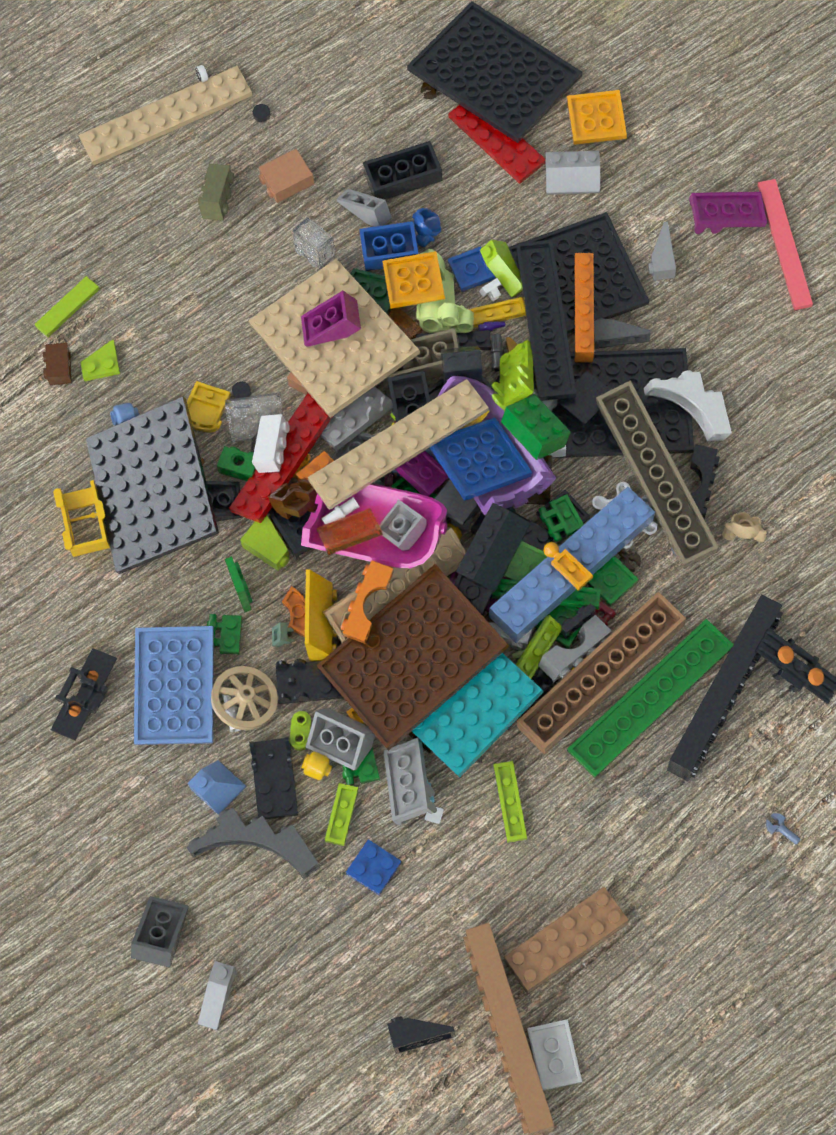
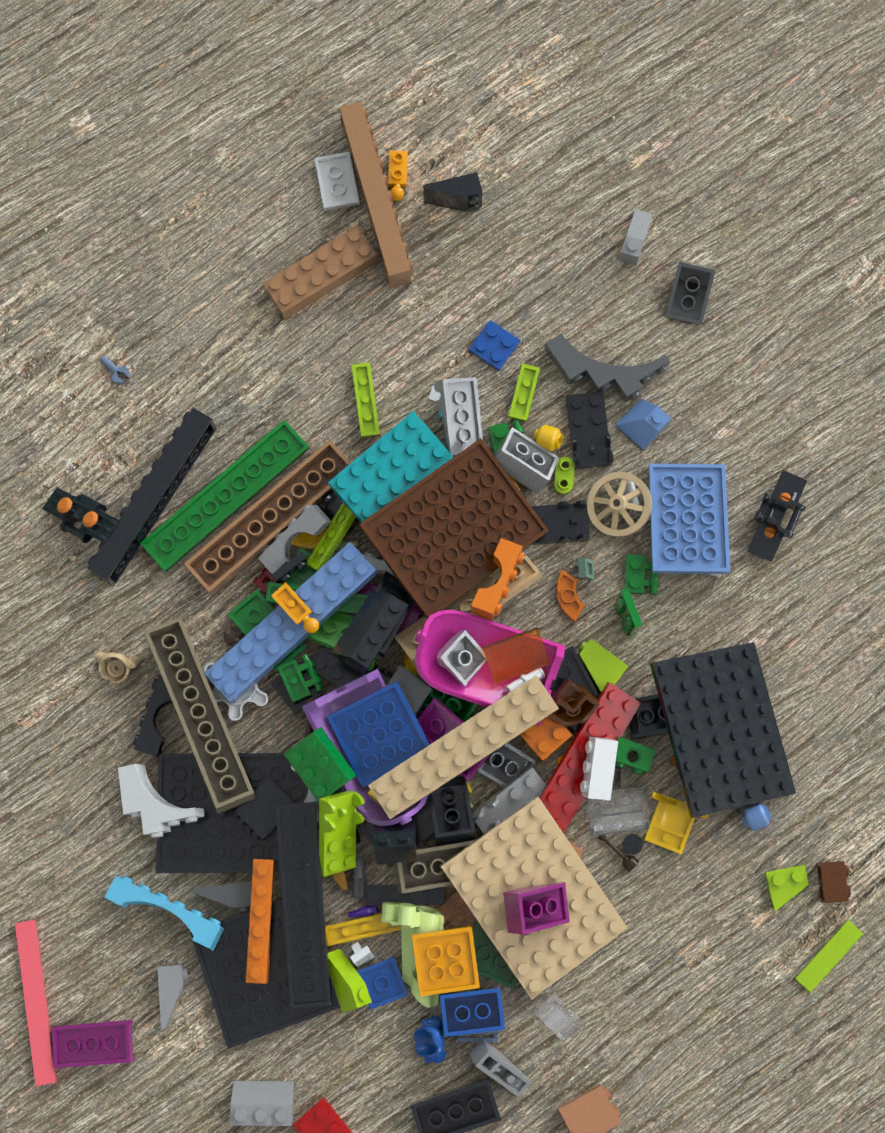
camera: 175 degrees right, 10 degrees up
(77, 500) = (800, 725): yellow piece -> none
(216, 192) = (668, 1096): olive wedge -> none
(244, 374) = (628, 862): none -> dark brown hinge
(318, 631) = (547, 589): yellow slope -> none
(485, 1064) = (397, 173): none -> light orange plate
(710, 329) = (125, 893): none -> medium azure arch

